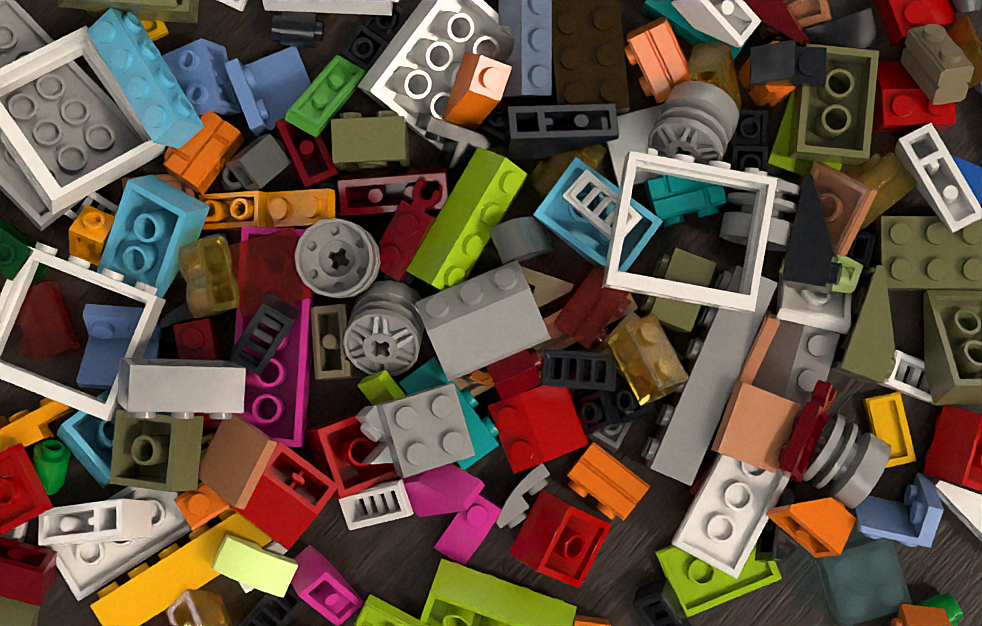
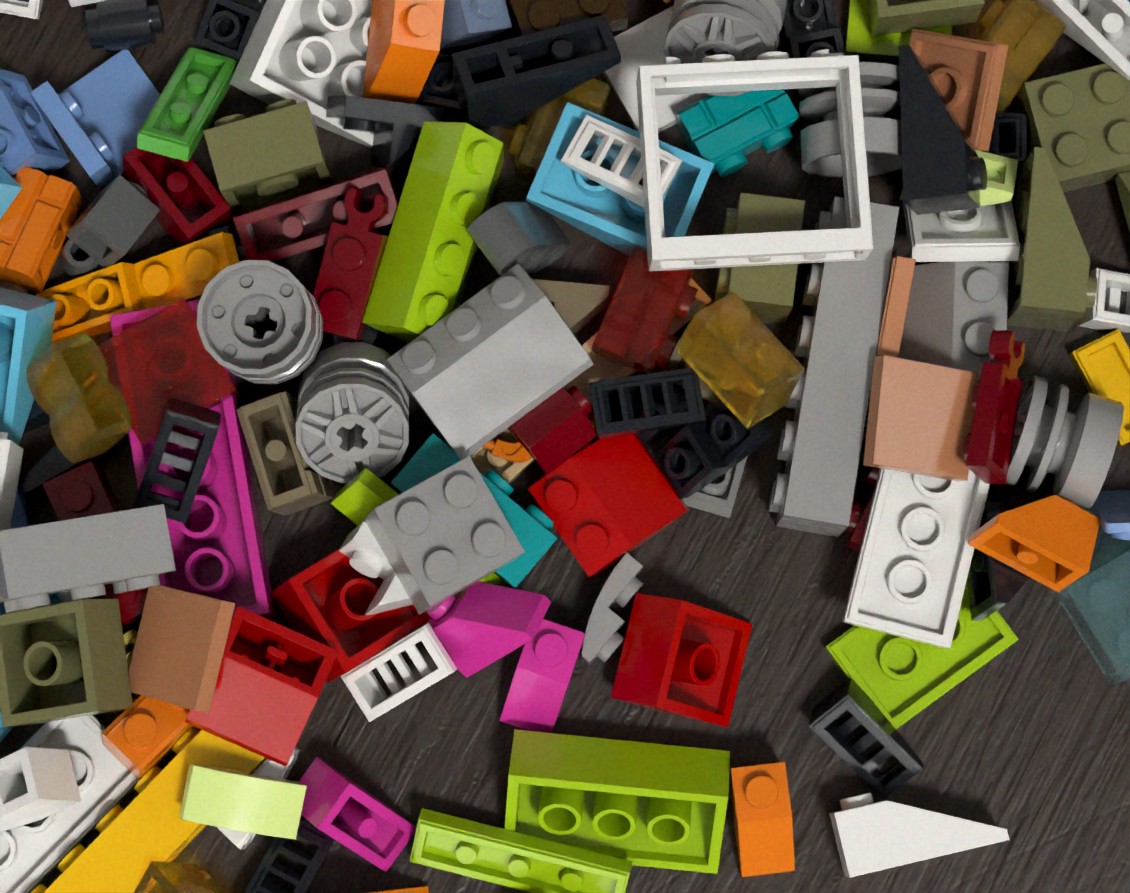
camera: 15 degrees left, 5 degrees down
(607, 481) = (727, 559): orange brick -> none

